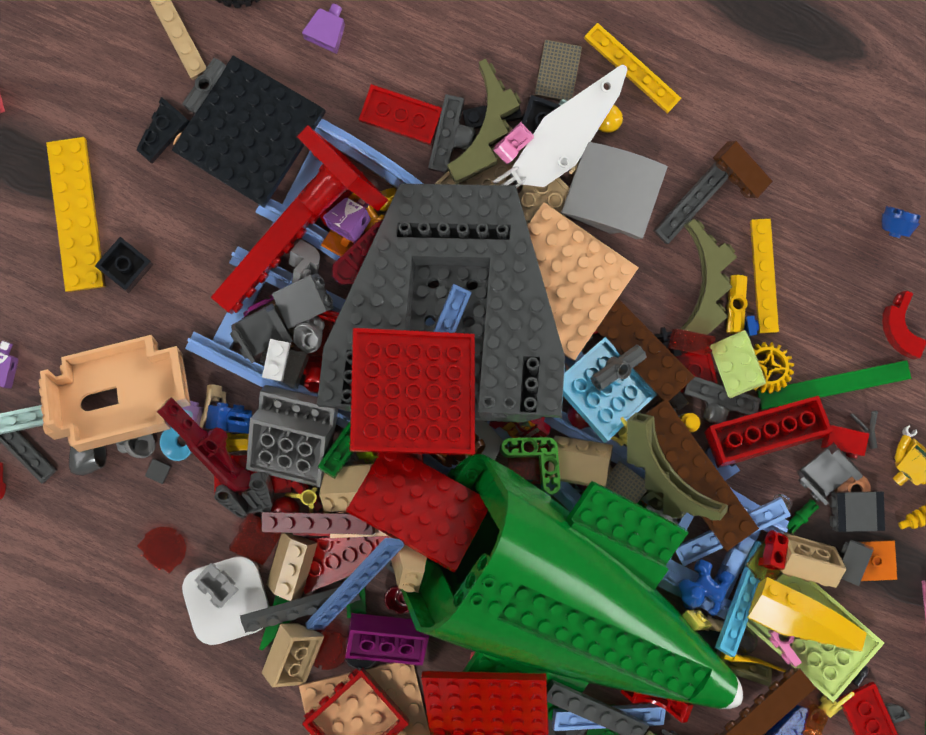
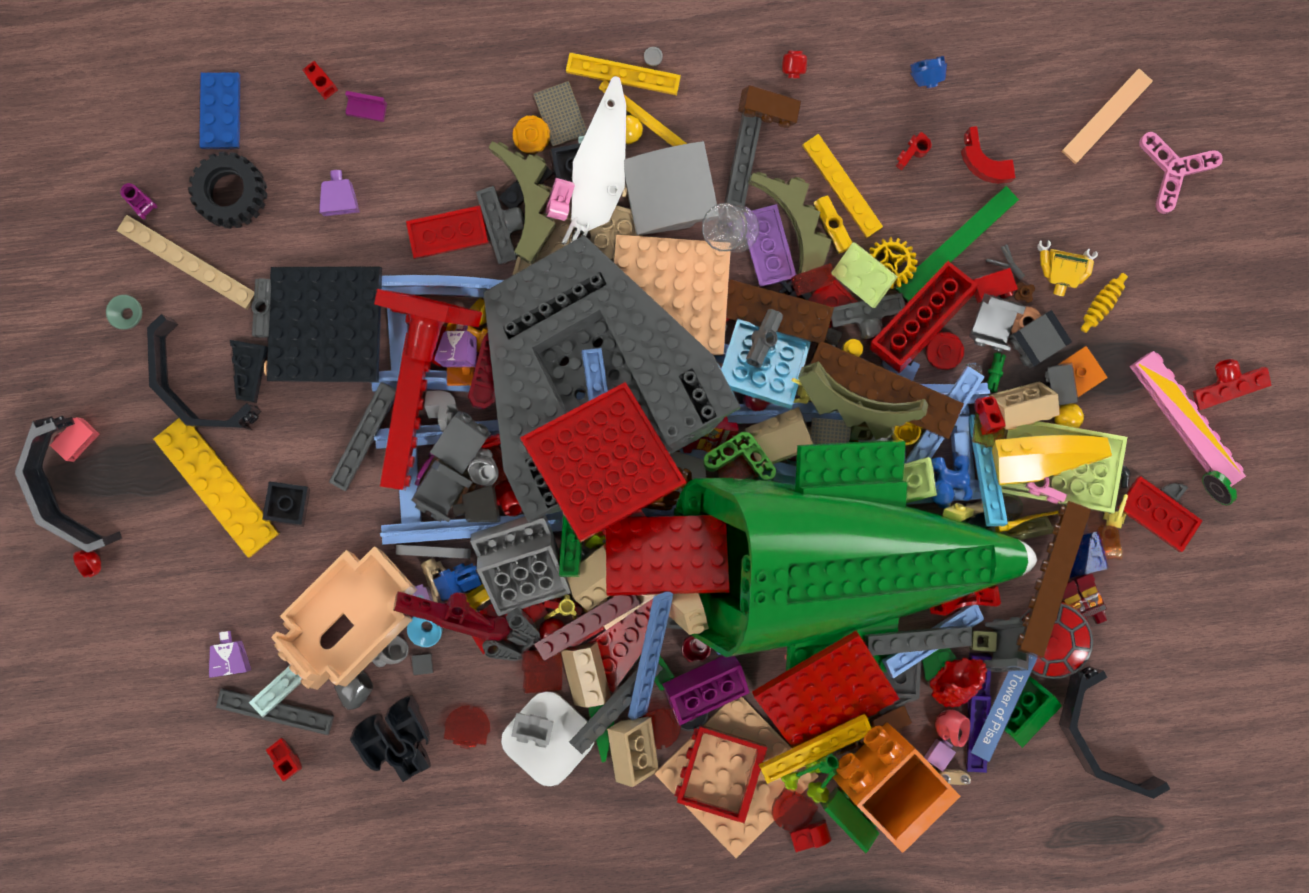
camera: 30 degrees left, 0 degrees up
(78, 98) = (158, 382): none -> black panel
(80, 14) = (115, 310): none -> sand green piece
(112, 518) = (377, 747): none -> black piece
(224, 246) = (363, 436): none -> dark grey tile
(224, 380) = (433, 551): none -> light grey beam
(276, 360) = (468, 506): white plate -> none
(522, 73) = (531, 134): none -> light orange tile
(630, 120) = (648, 120): none -> yellow axle
(645, 254) = (730, 227): none -> clear piece
(667, 68) = (653, 56): none -> light grey piece
(669, 289) = (771, 251): none -> medium lavender plate
(681, 571) = (920, 479): none -> yellowish green tile
(693, 524) = (907, 432): none -> yellow hair
(751, 325) = (856, 235): blue plate -> none
(768, 471) = (945, 351): none -> red tile
(785, 146) = (794, 64): none -> red head
(834, 283) = (905, 156): none -> red plate
(844, 593) = (1070, 415): none -> yellow hair
(862, 462) = (1024, 297): none -> reddish brown plate

